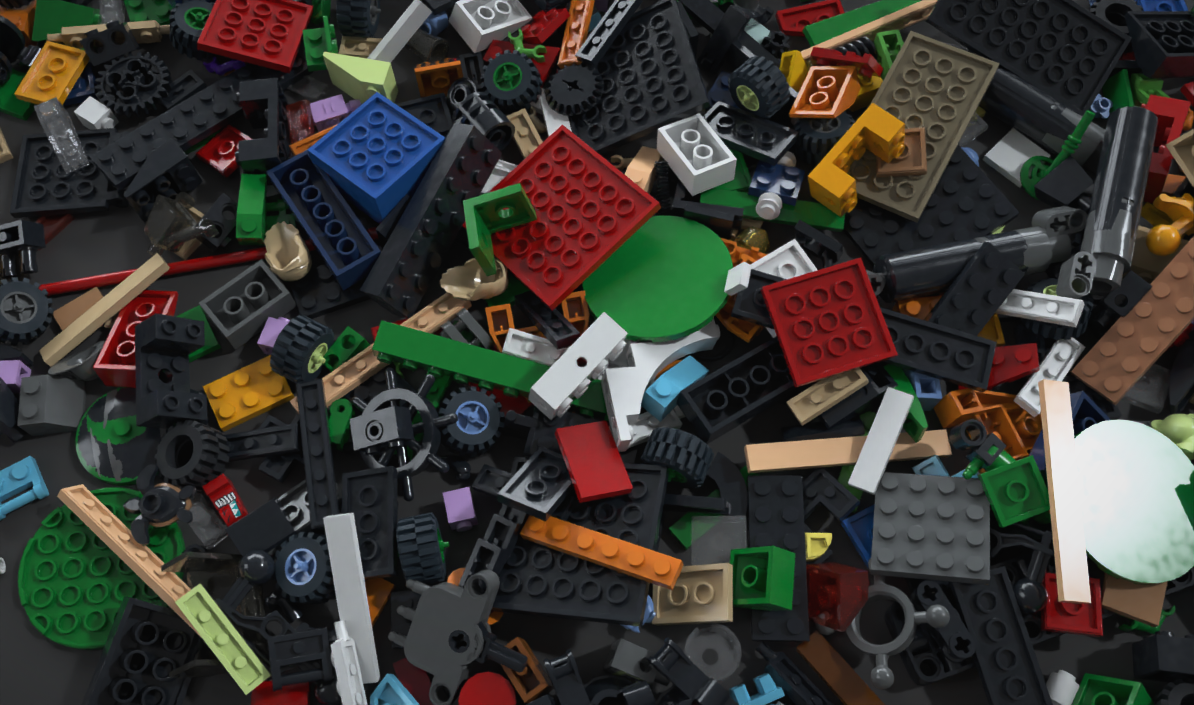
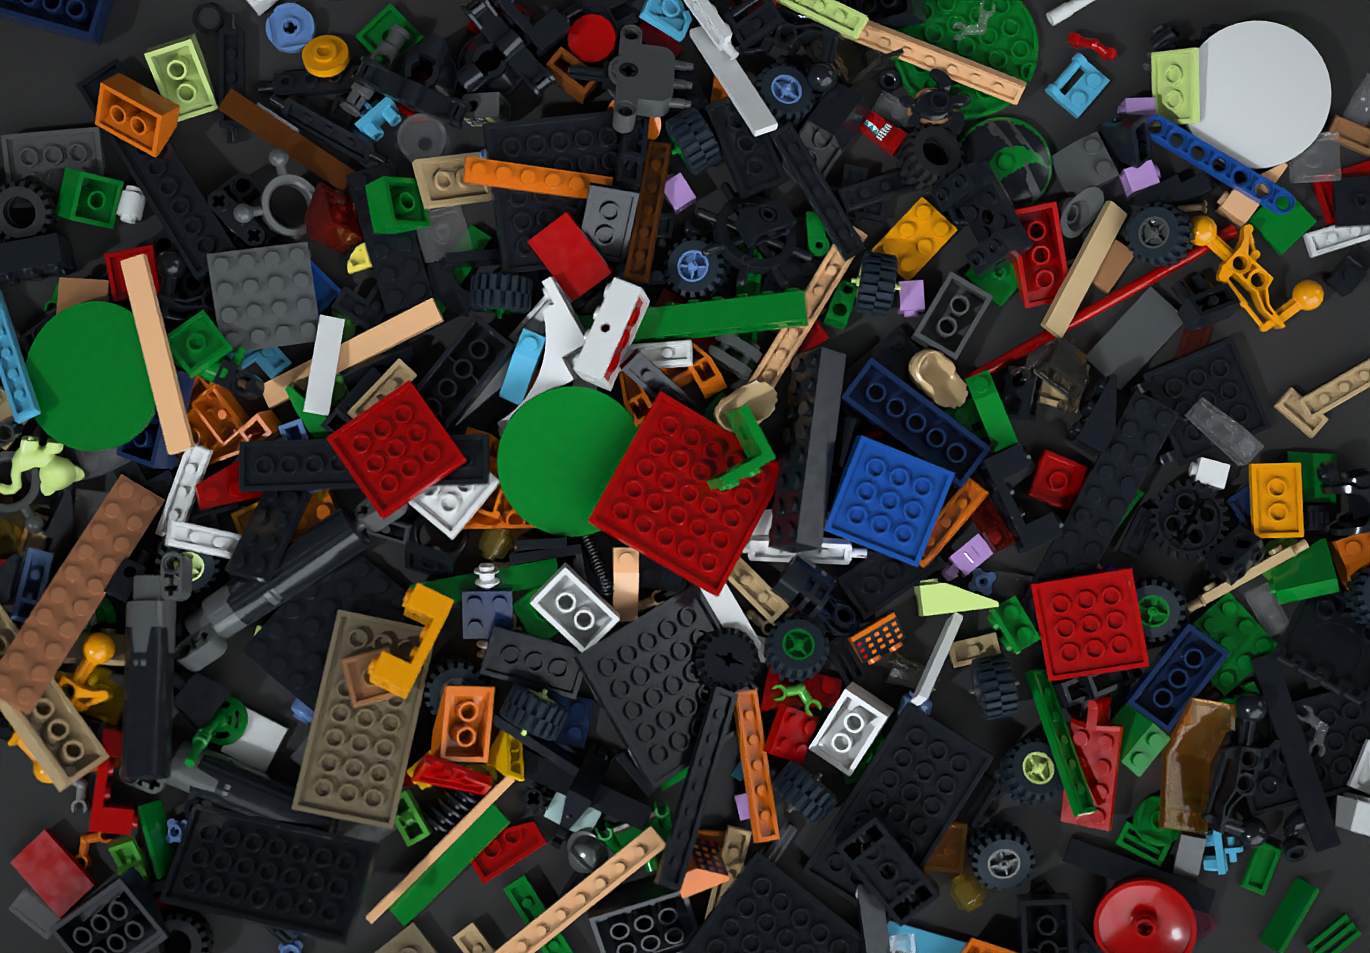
camera: 160 degrees right, 20 degrees up
(74, 576) = (979, 28): none -> clear arm
(96, 244) = (1135, 337): none -> dark grey tile
(329, 90) = (988, 579): none -> medium blue plate
(510, 459) = (648, 212): none -> reddish brown tile
(737, 278) = (491, 466): white tile -> none

